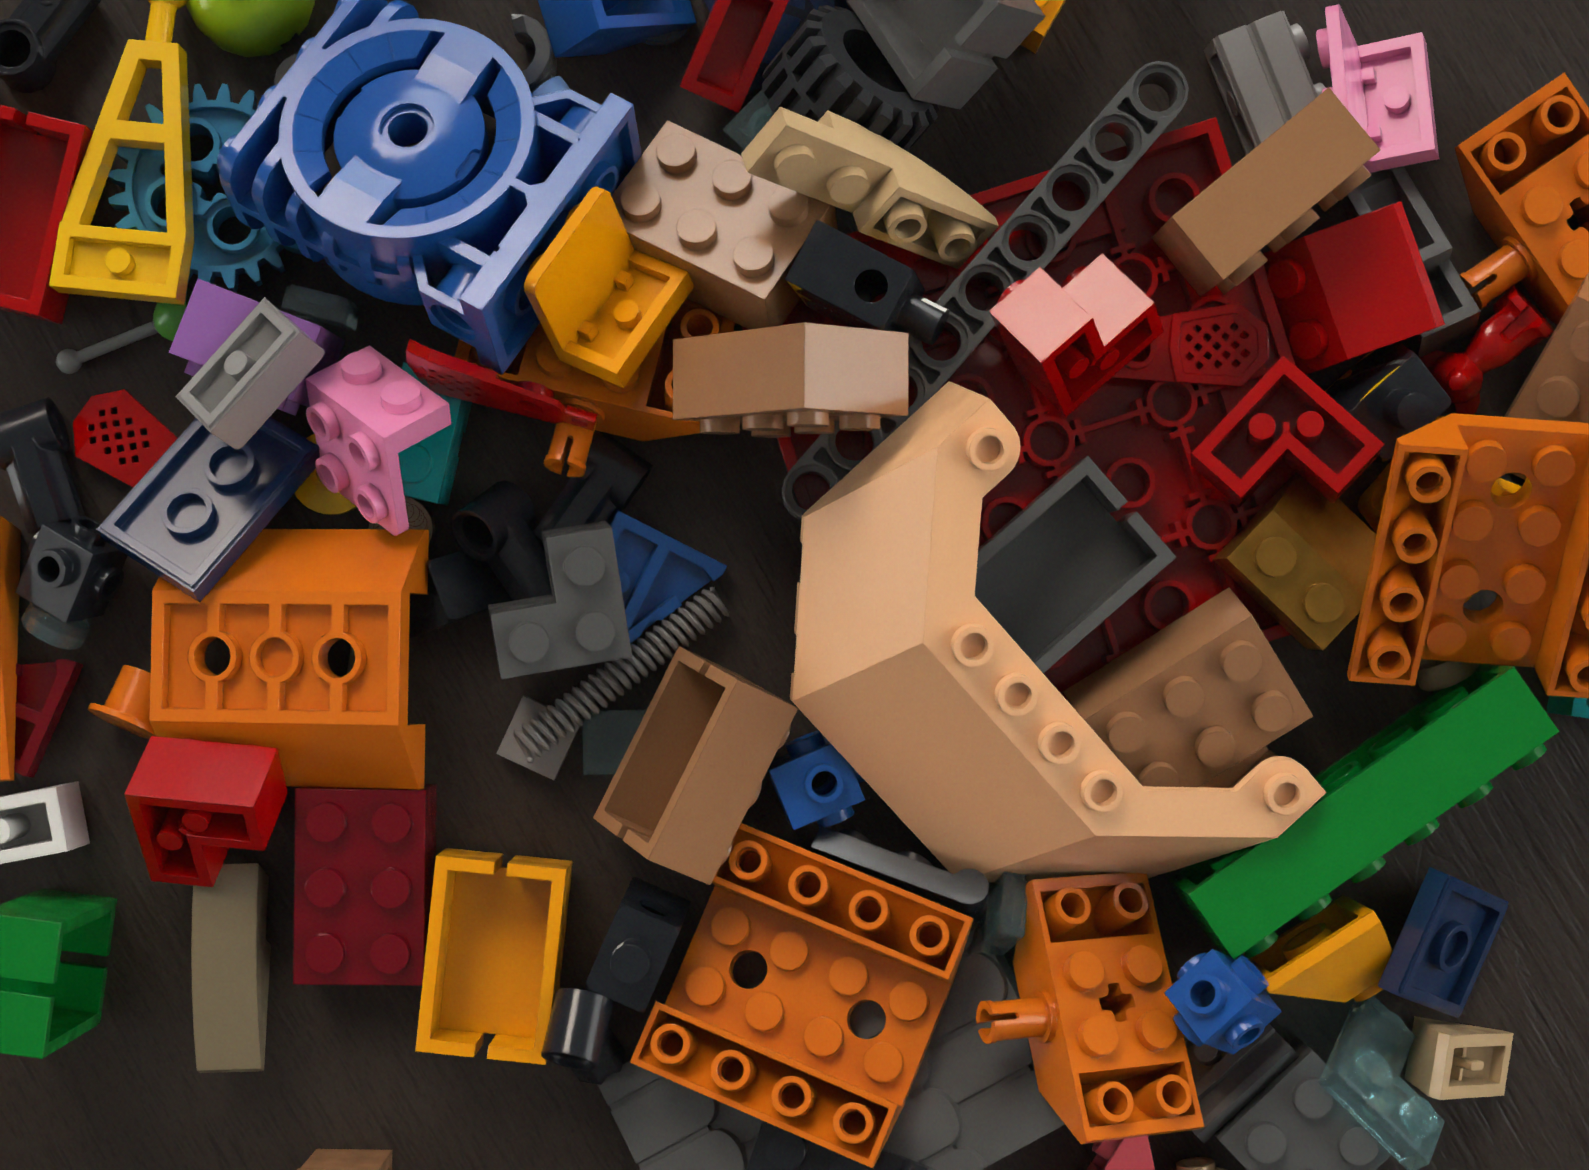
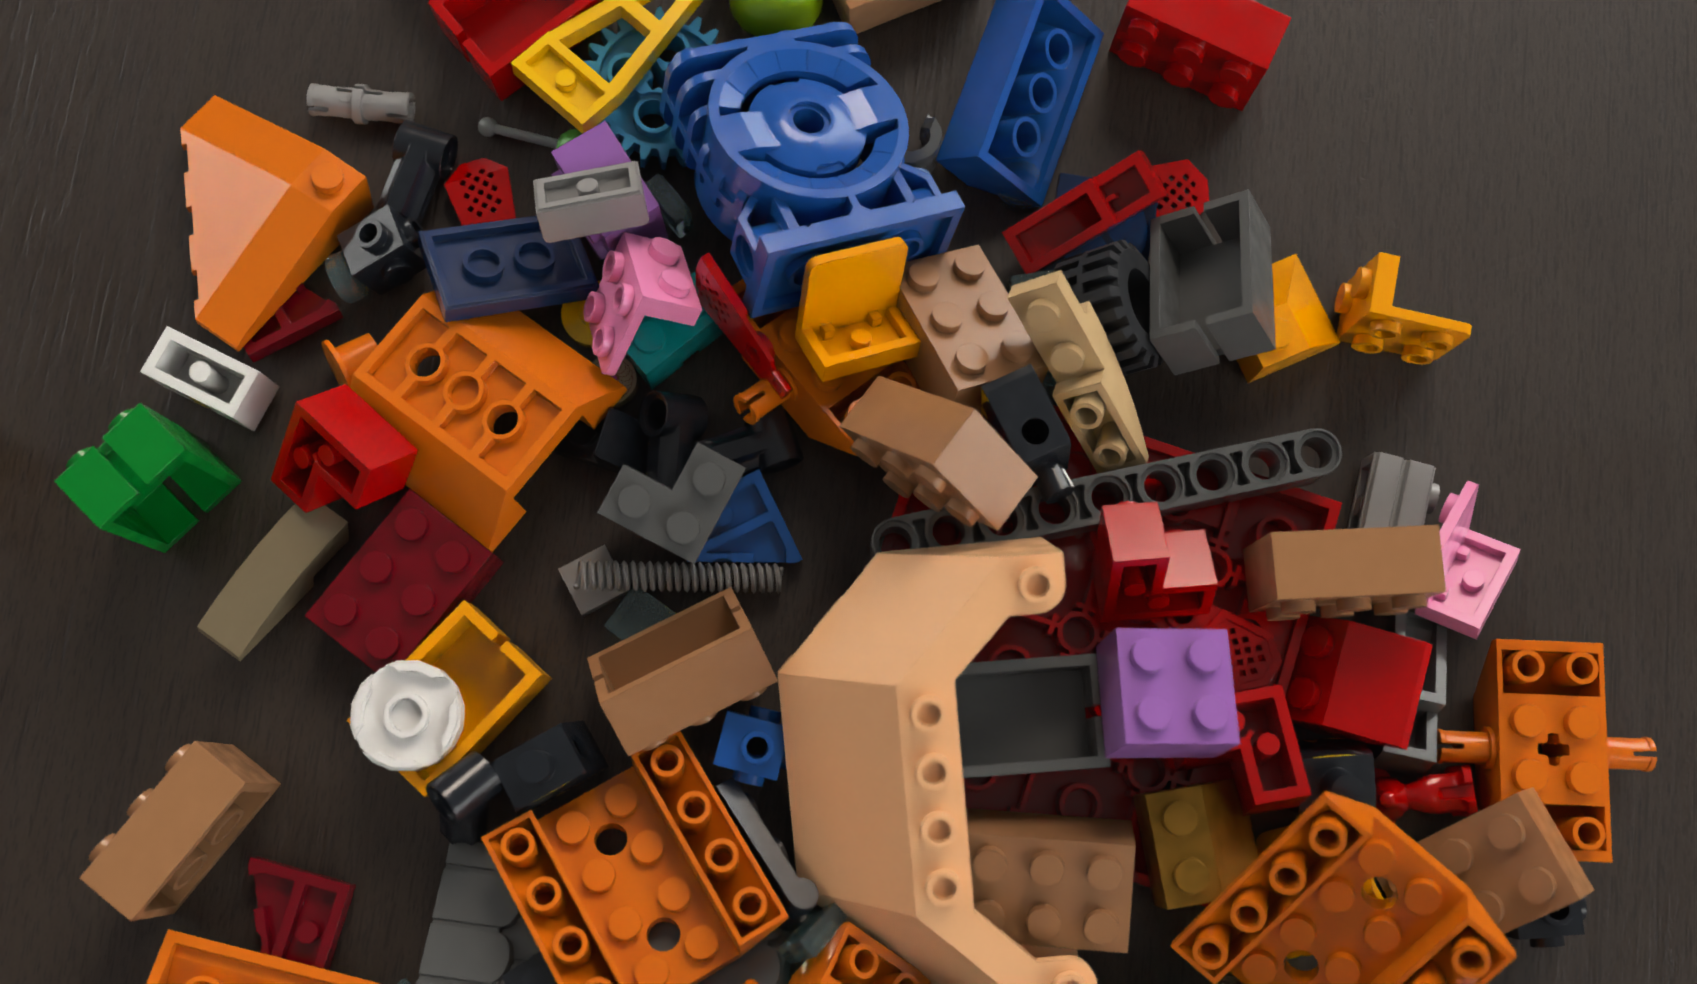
camera: 30 degrees right, 10 degrees down
(471, 1003) = (407, 715): none -> white tile
(1181, 451) = (1167, 693): none -> medium lavender brick

